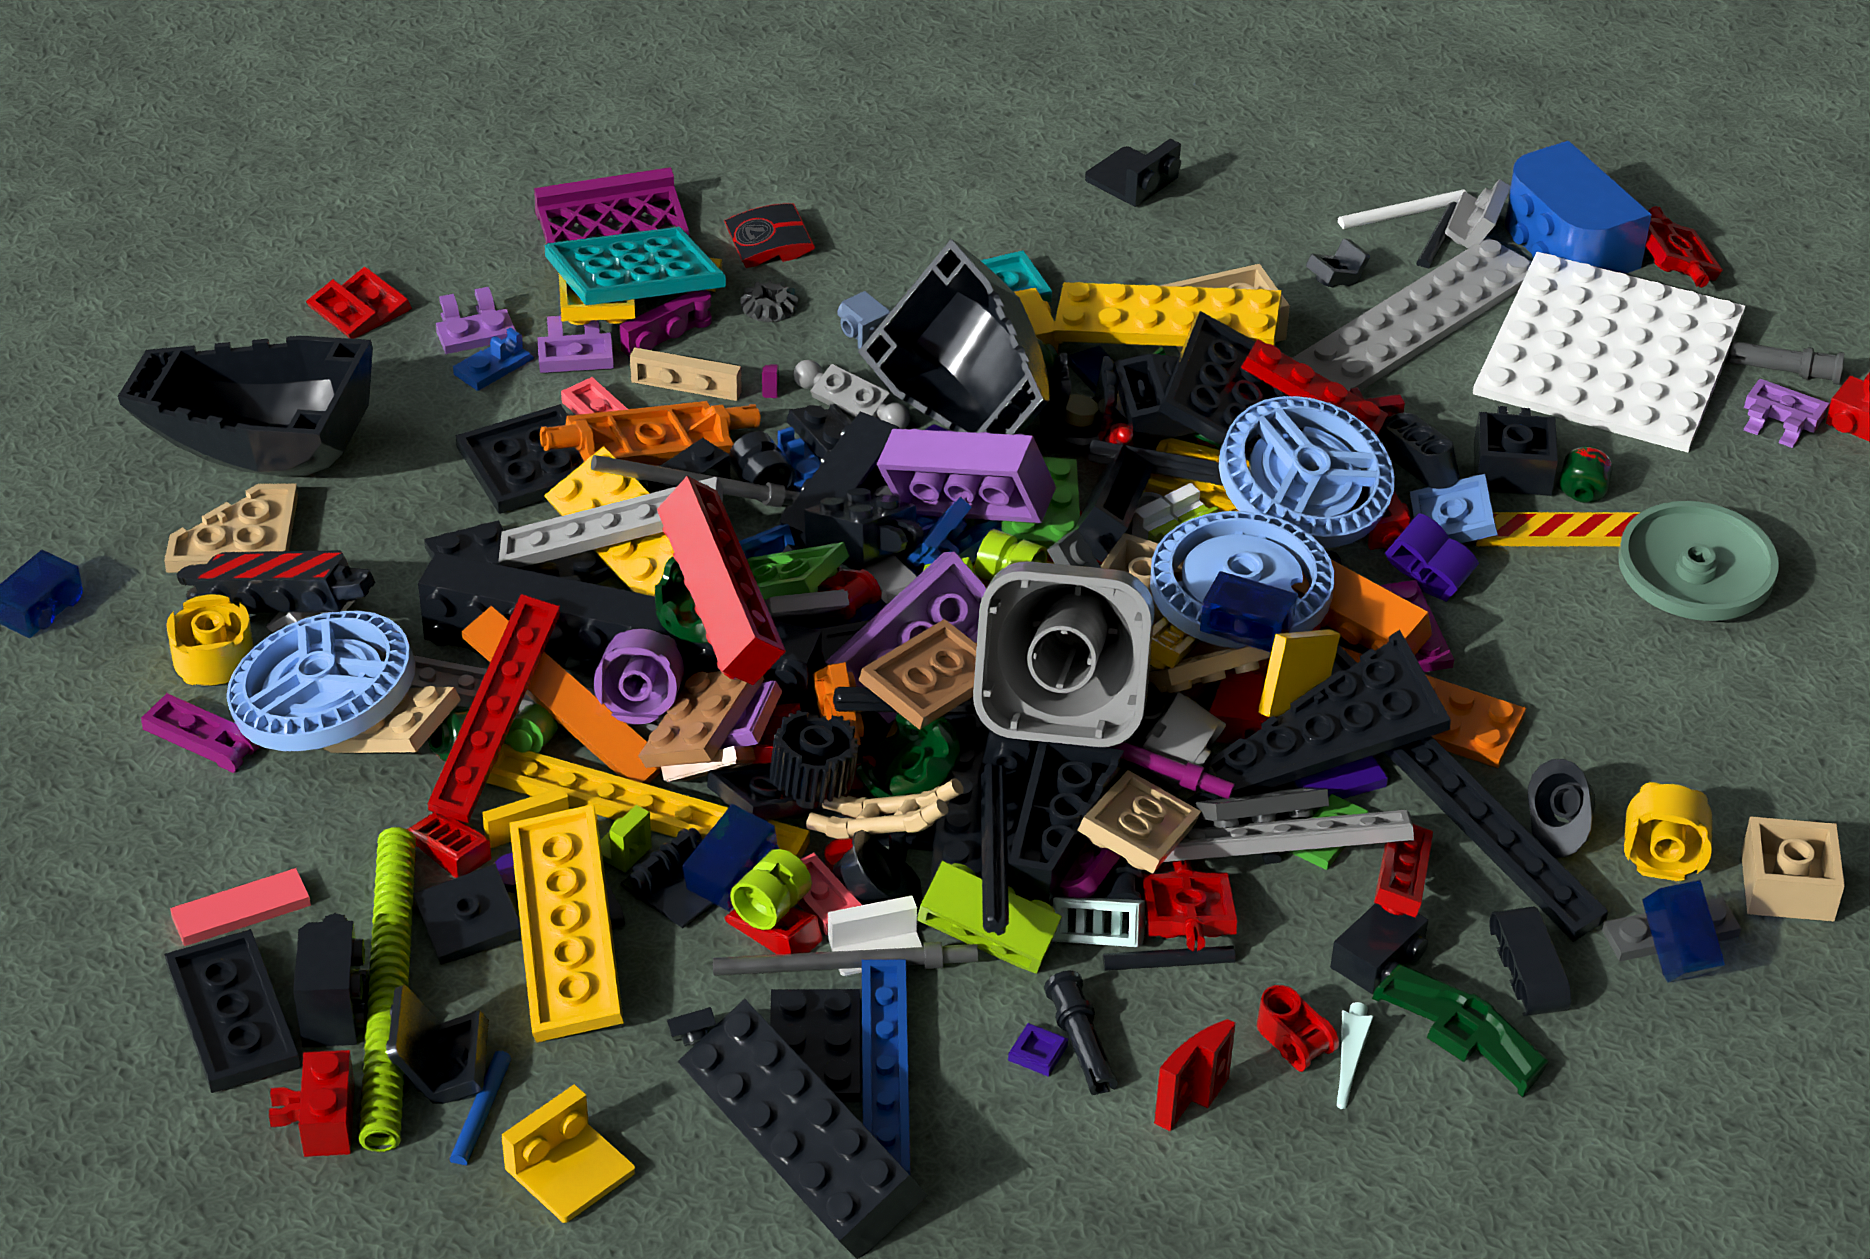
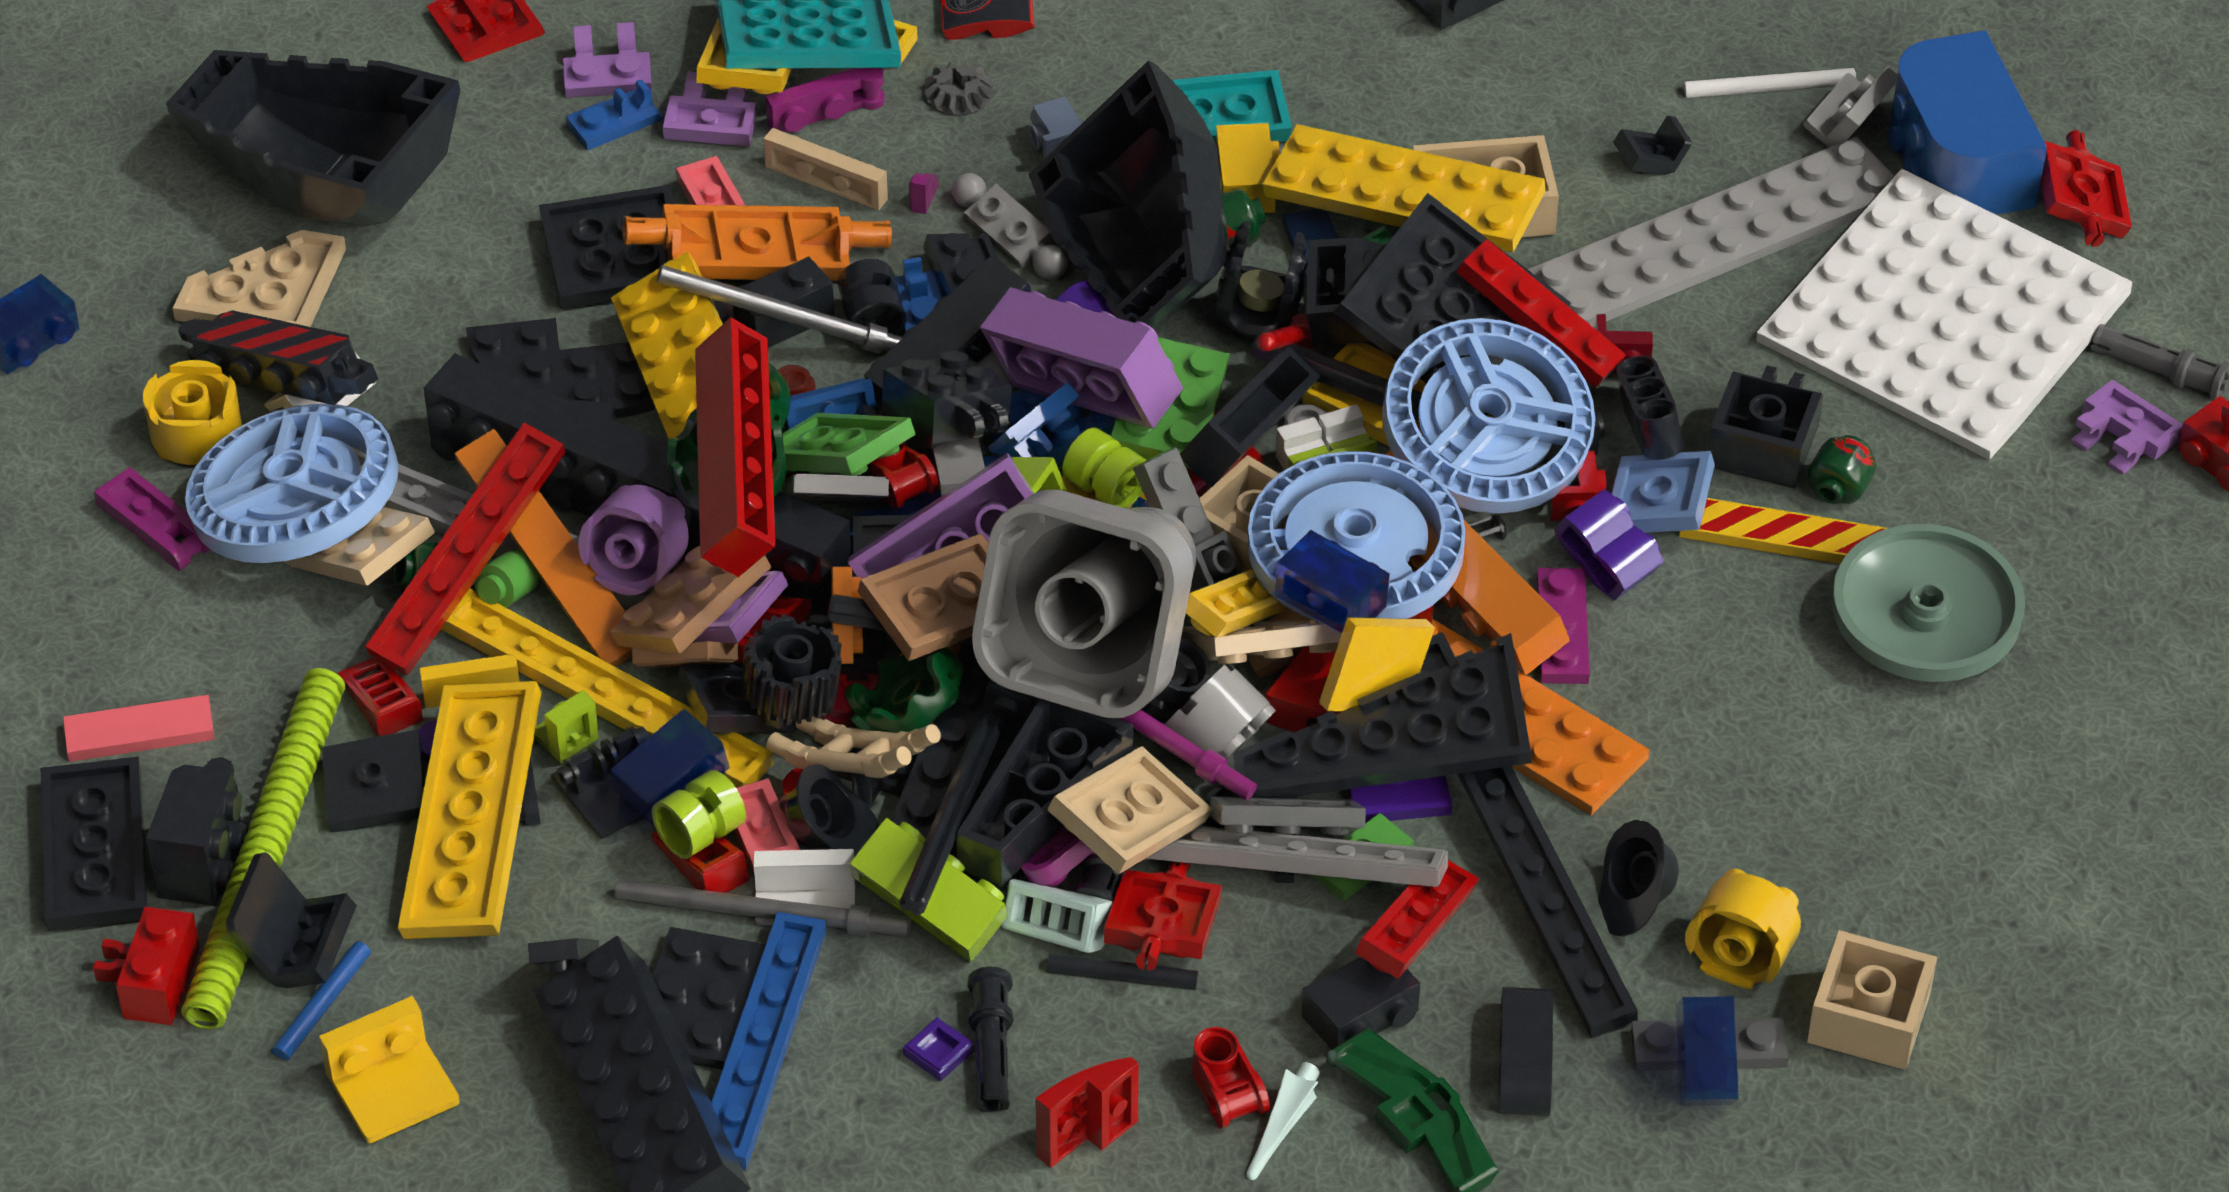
camera: 15 degrees right, 5 degrees up
(587, 529) = (637, 351): light grey plate -> none
(1436, 239) = (1792, 131): black bar -> none

